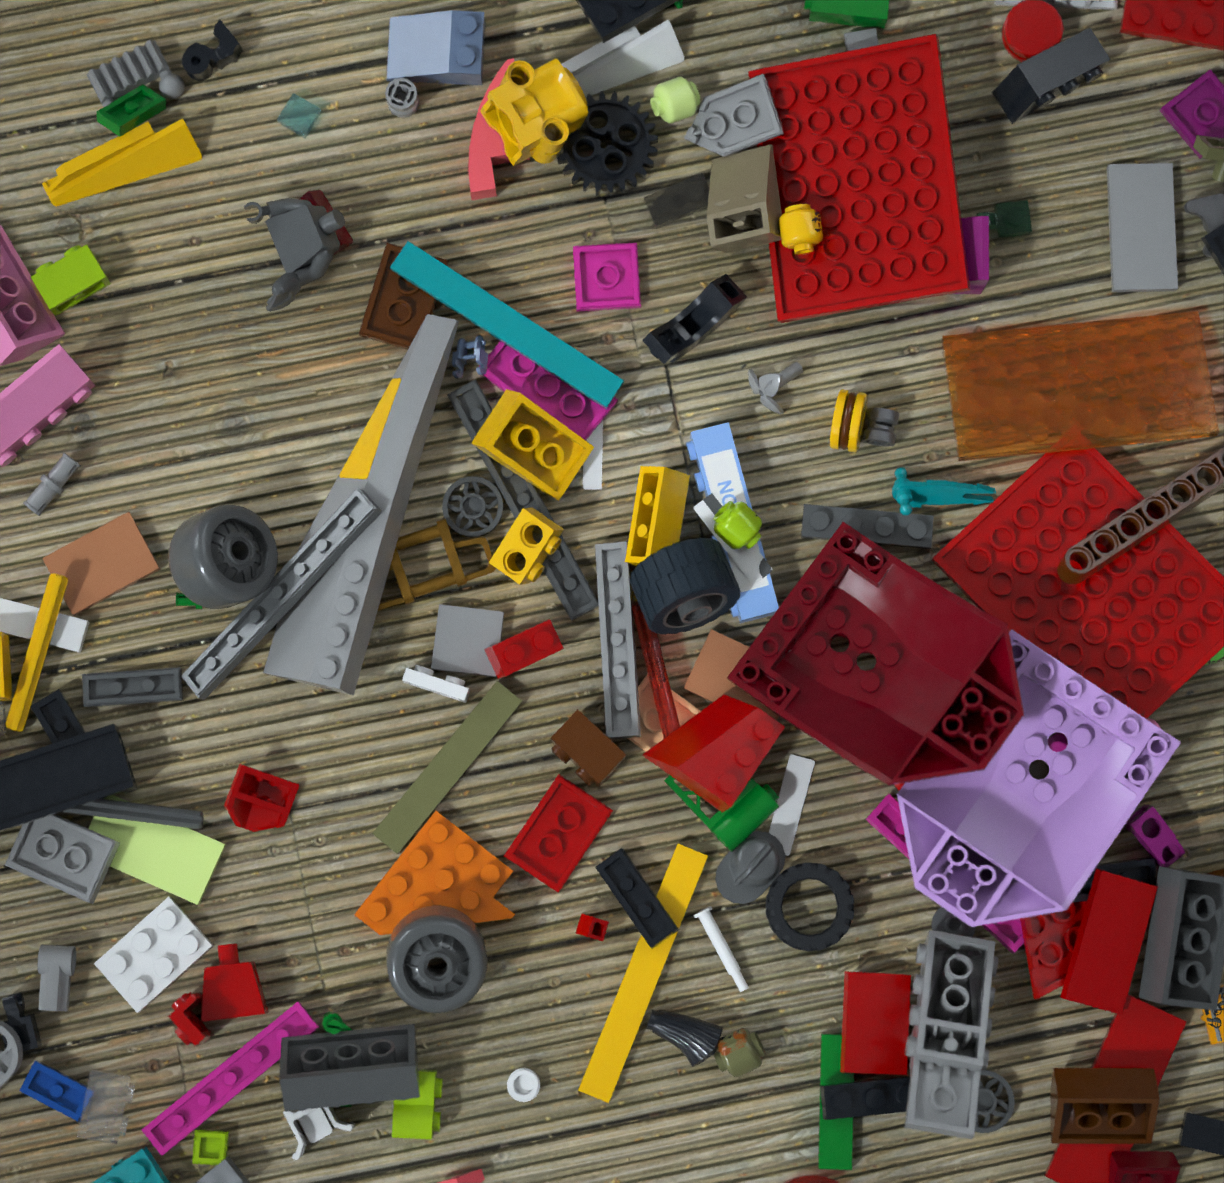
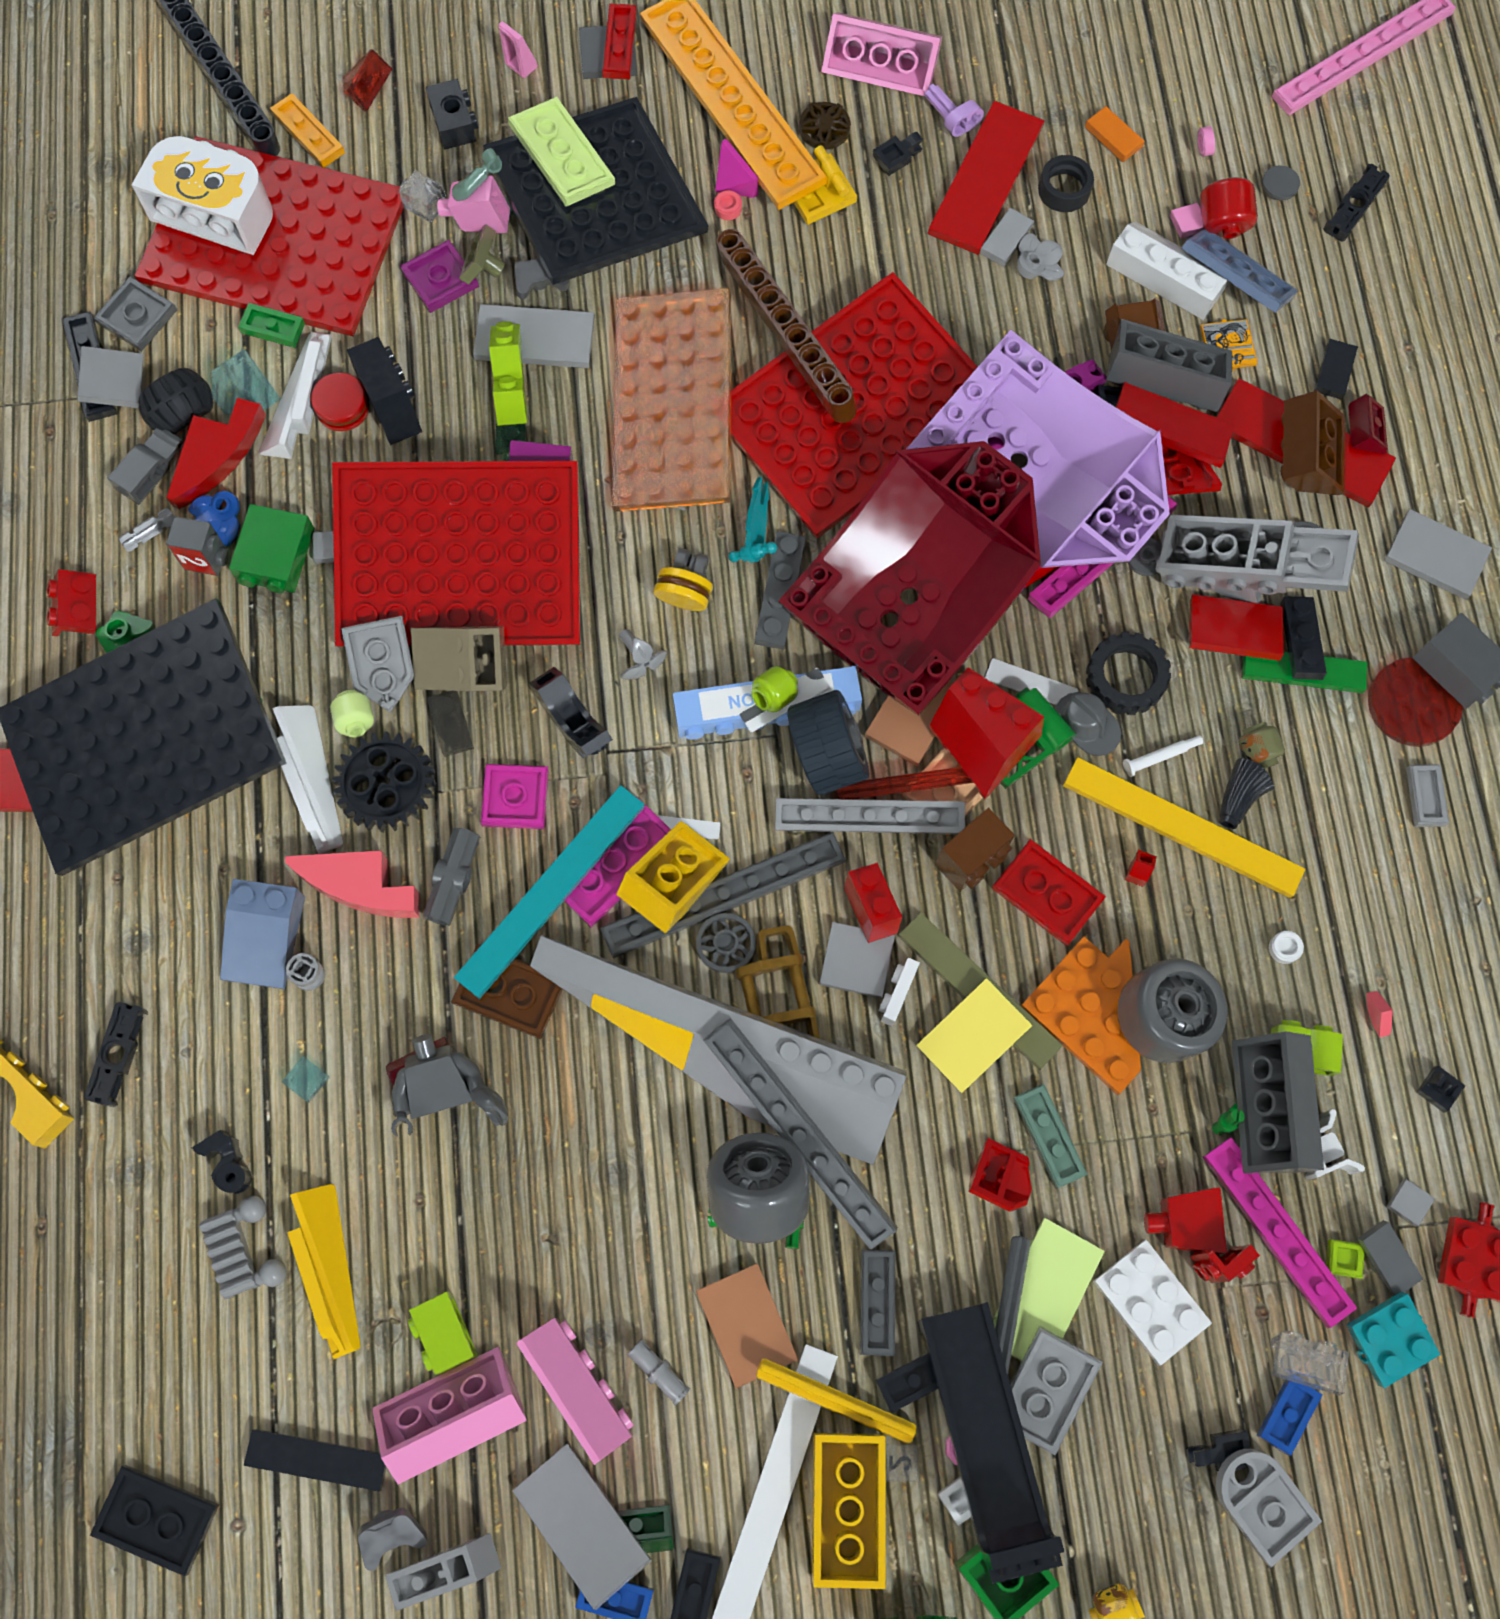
camera: 85 degrees left, 10 degrees down
(56, 967) = (1168, 1407): light grey piece -> none
(131, 110) = (272, 1251): green plate -> none
(306, 847) = (1050, 1136): none -> sand green tile
(398, 763) = (974, 1035): none -> light yellow tile
(460, 356) = (577, 940): sand blue piece -> none
(513, 225) = (451, 876): none -> dark grey piece
(520, 540) = (768, 895): yellow brick -> none
(535, 110) = (344, 832): yellow piece -> none
(637, 898) = (1115, 823): black tile -> none
(656, 512) = (756, 767): yellow brick -> none
(800, 228) = (497, 606): yellow head -> none
(1089, 202) = (508, 376): none -> lime arch

